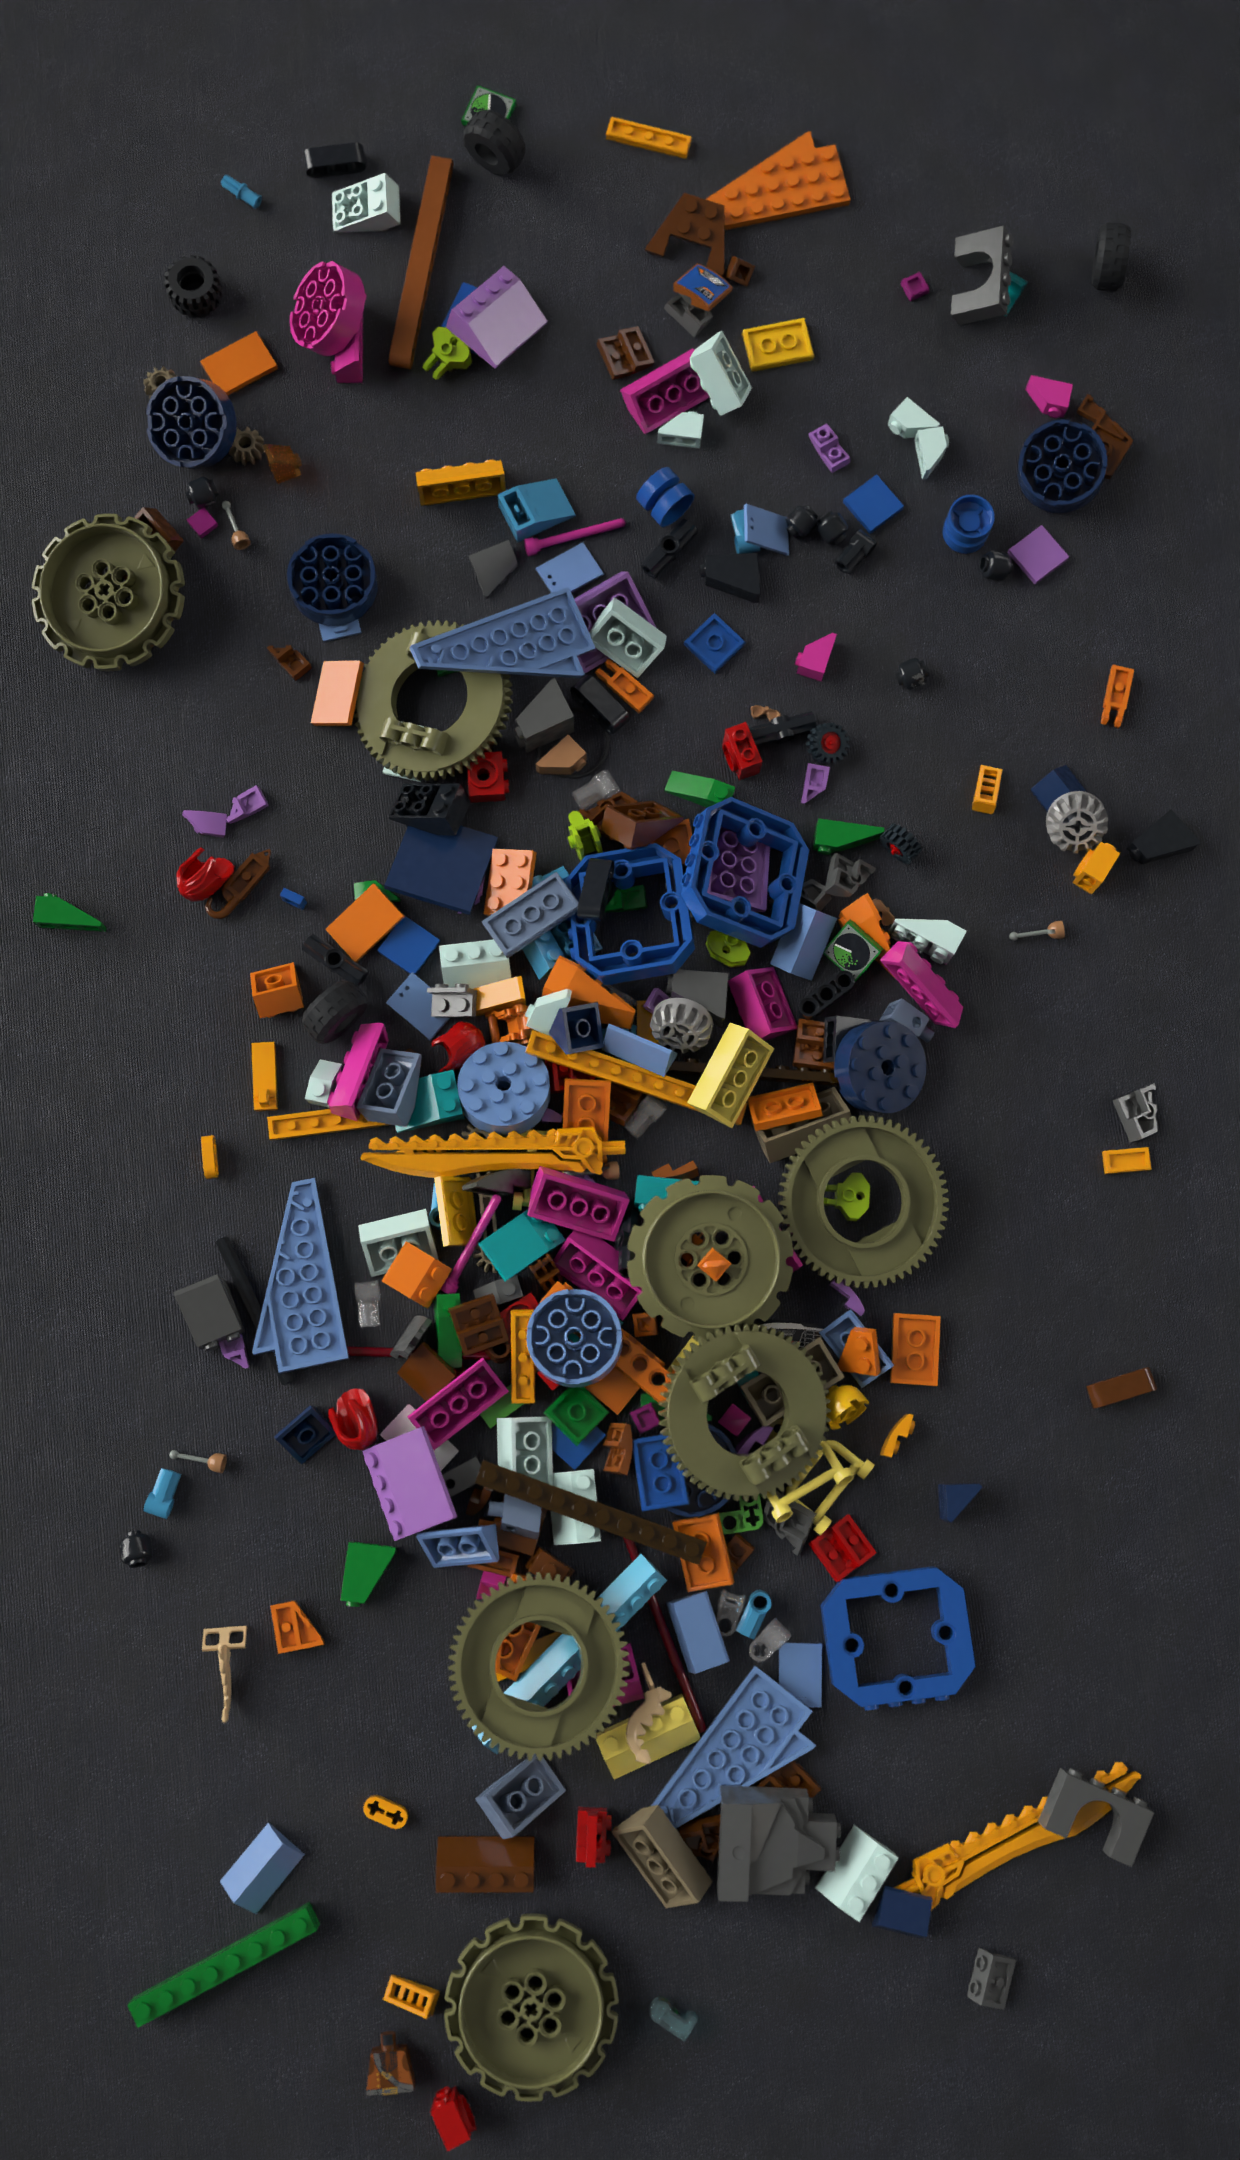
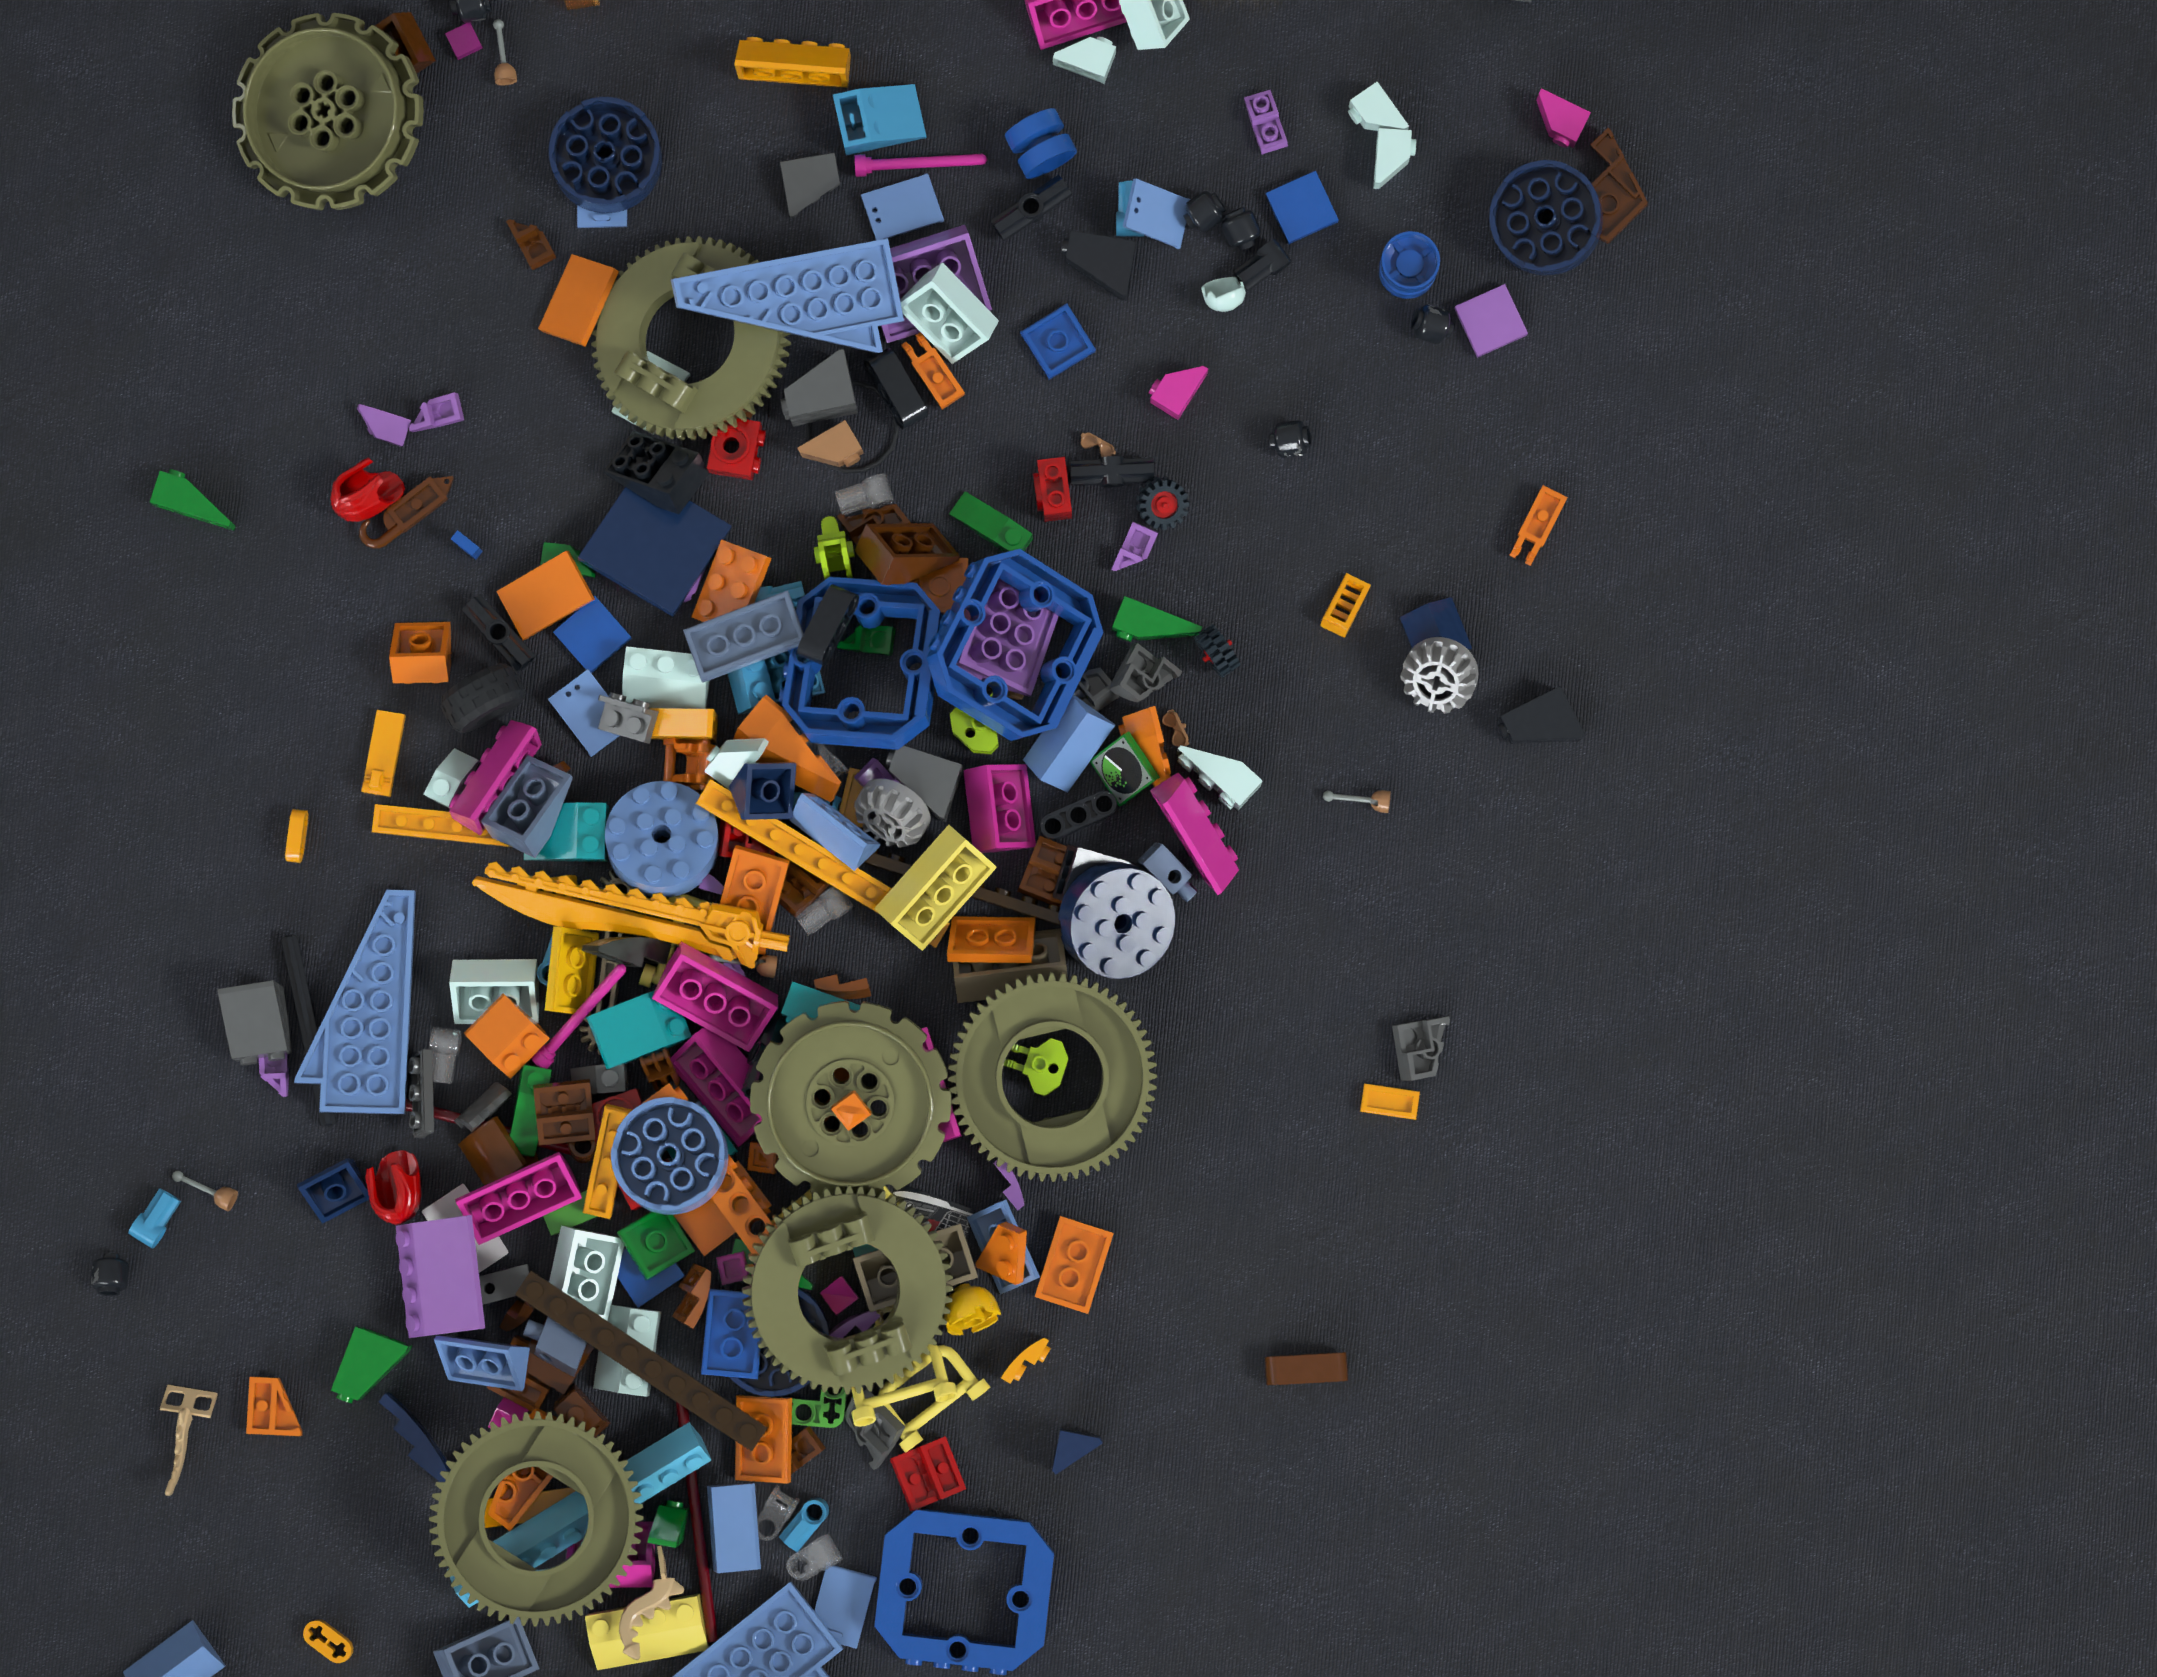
camera: 20 degrees right, 5 degrees up
(358, 1338) = (421, 1093): none -> dark grey tile
(430, 1632) = (425, 1449): none -> dark blue slope
(460, 1043) = (625, 771): red hair -> none
(645, 1642) = (669, 1524): none -> green slope
(833, 578) = (1223, 294): none -> light aqua hair
(1095, 867) = (1446, 735): light orange brick -> none

